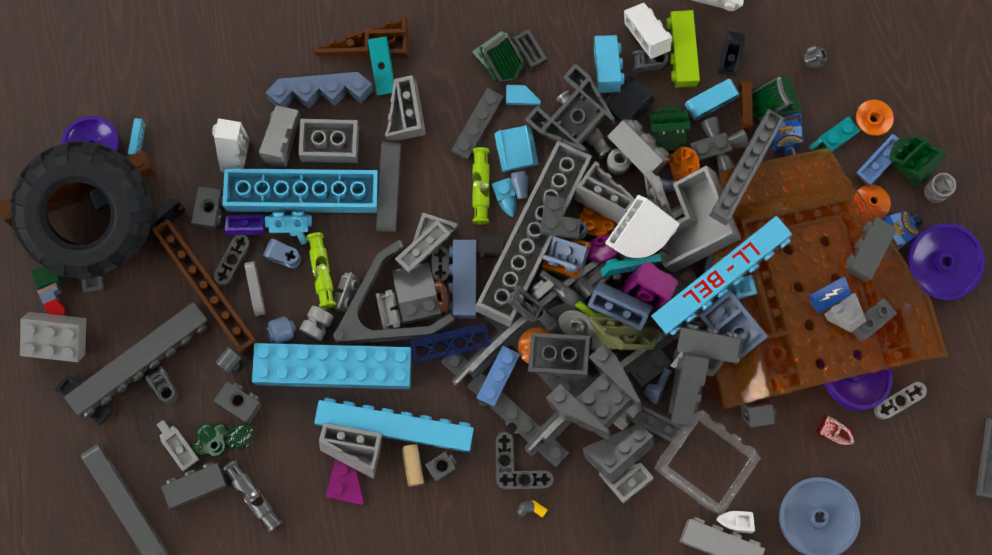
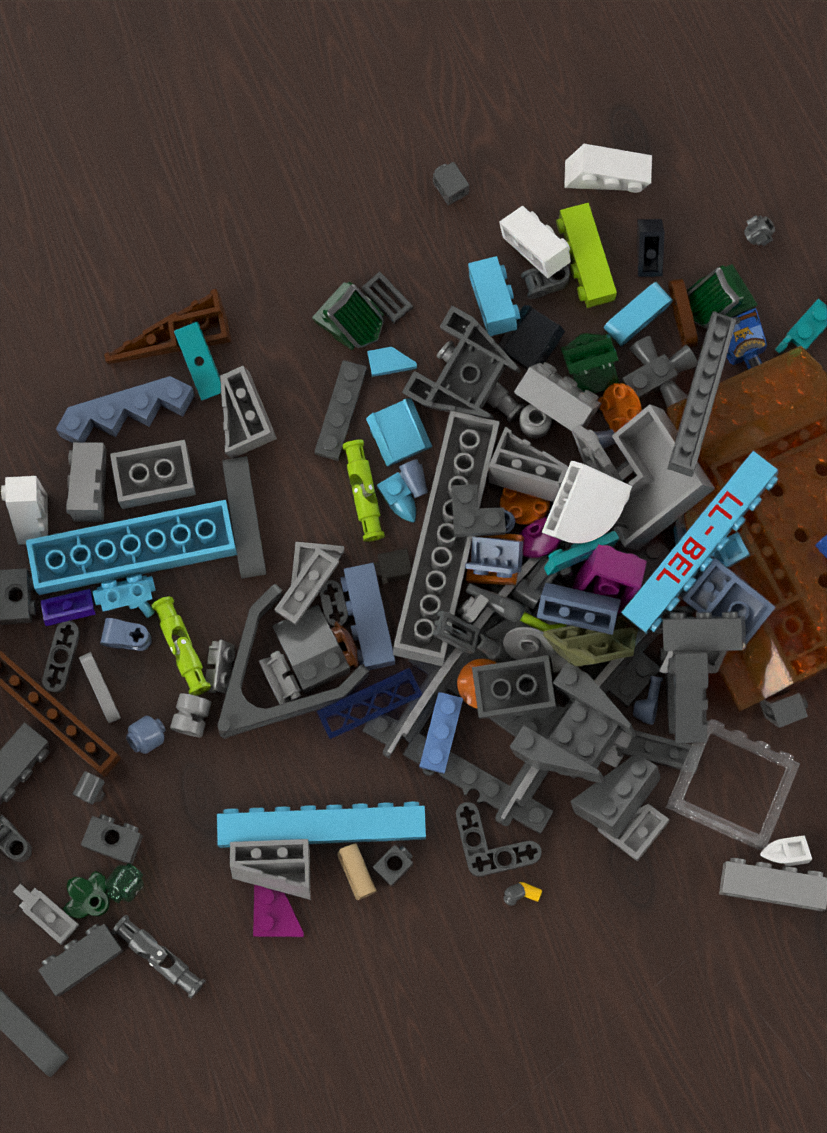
camera: 10 degrees left, 0 degrees up
(332, 366) = (223, 766): medium azure brick -> none

